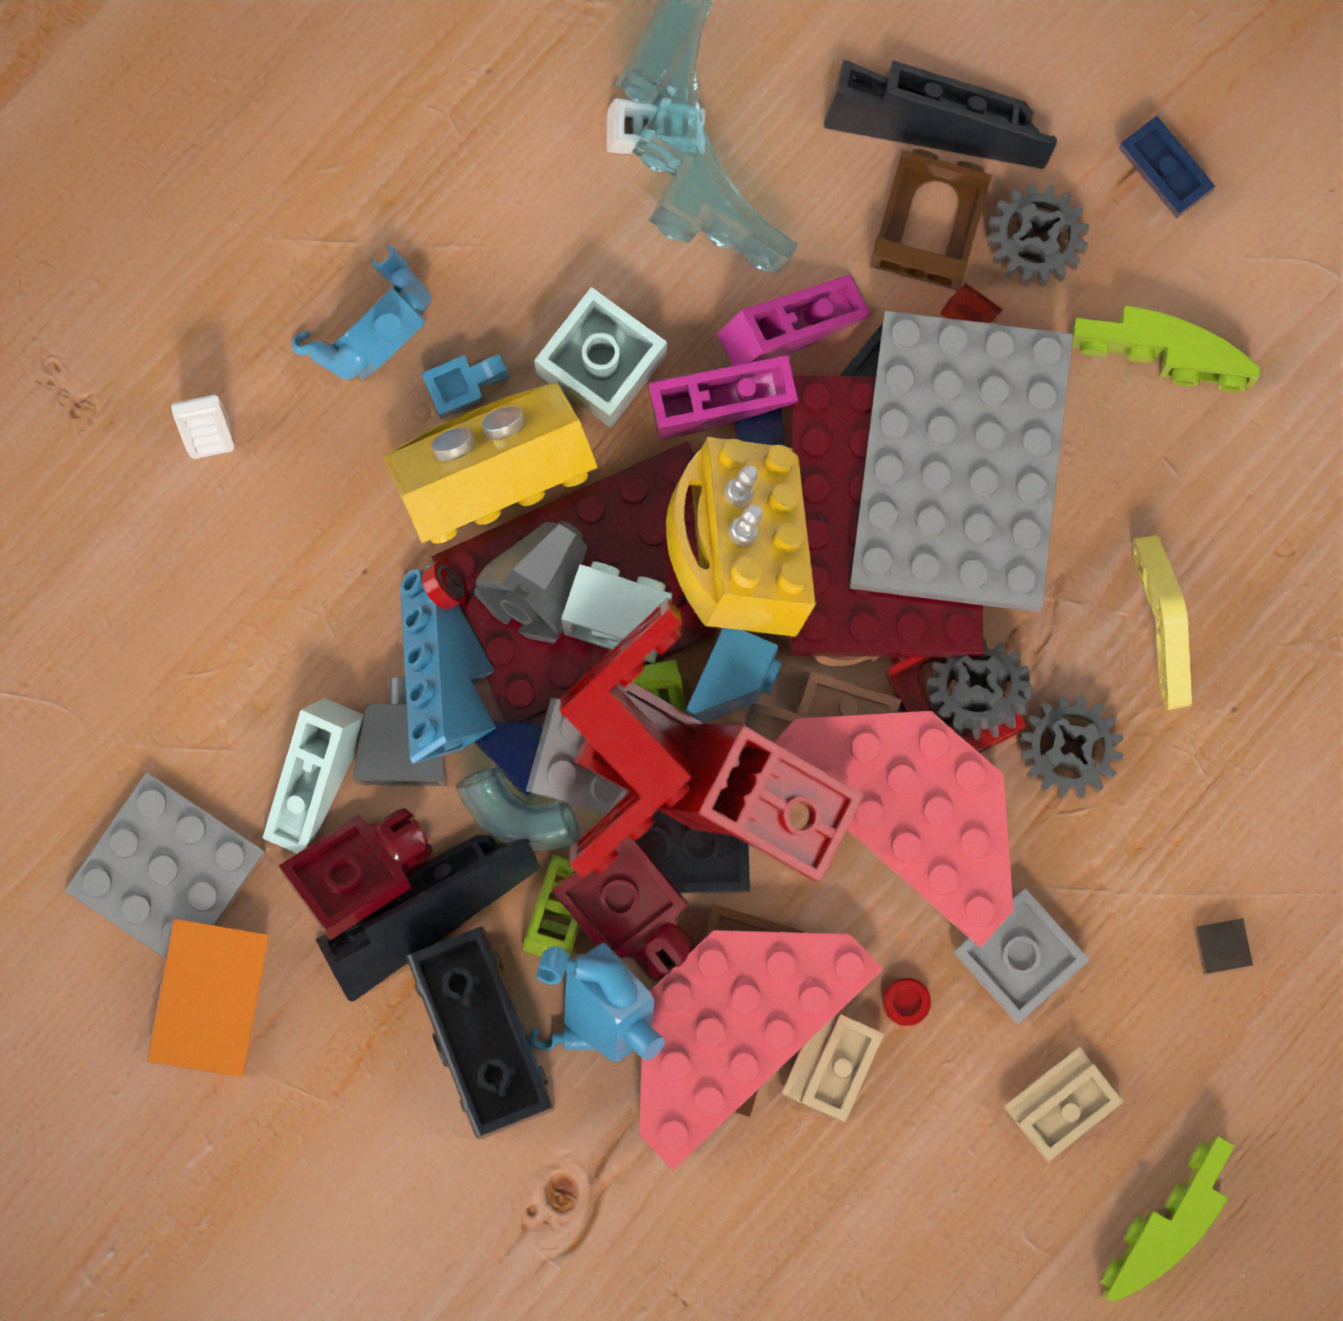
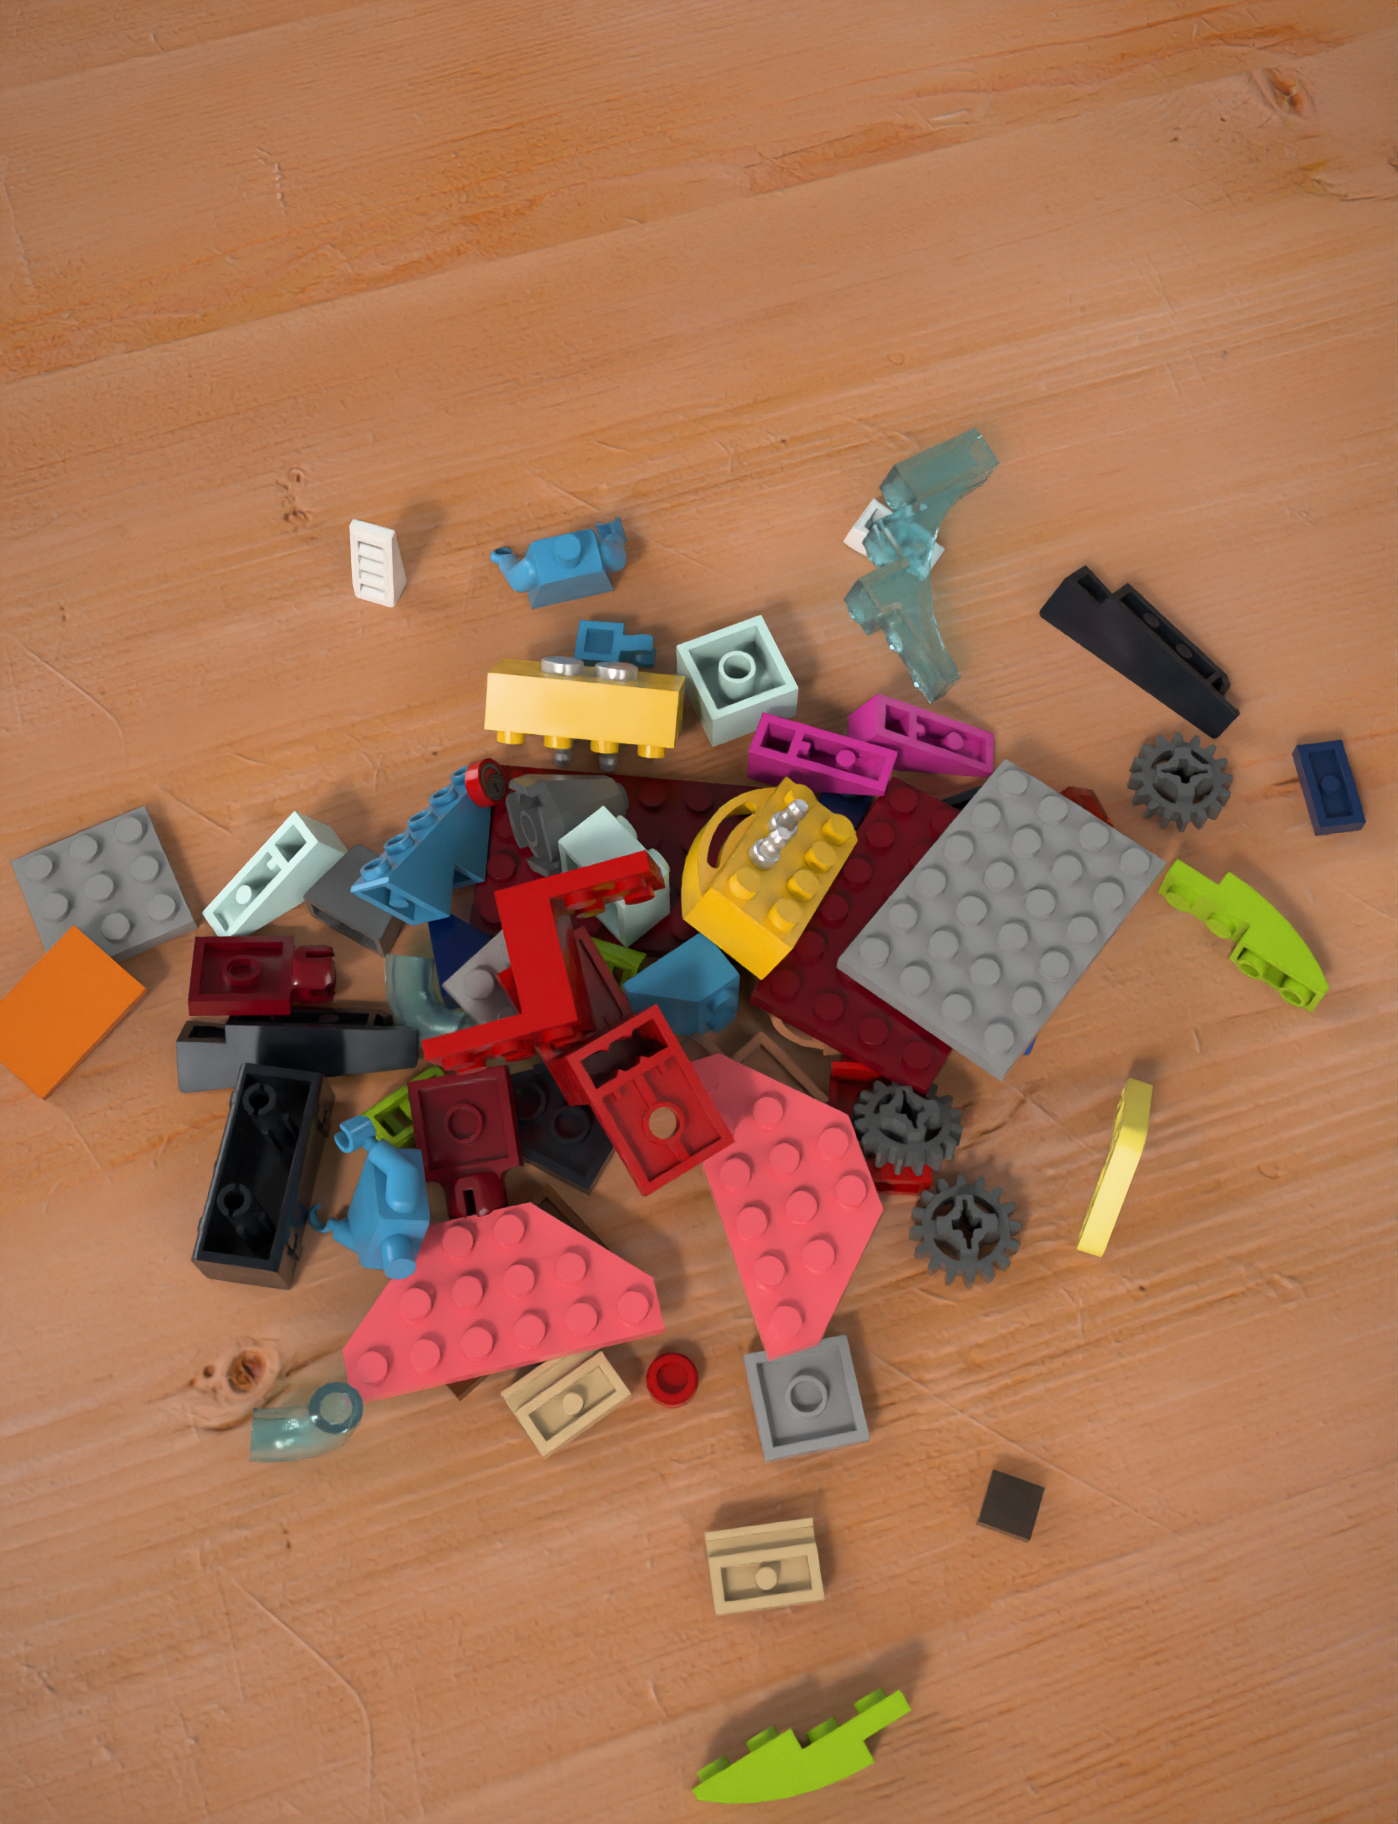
camera: 30 degrees right, 15 degrees down
(647, 1210) = (308, 1428): none -> clear light blue cylinder
(914, 171) = (1102, 680): reddish brown panel -> none

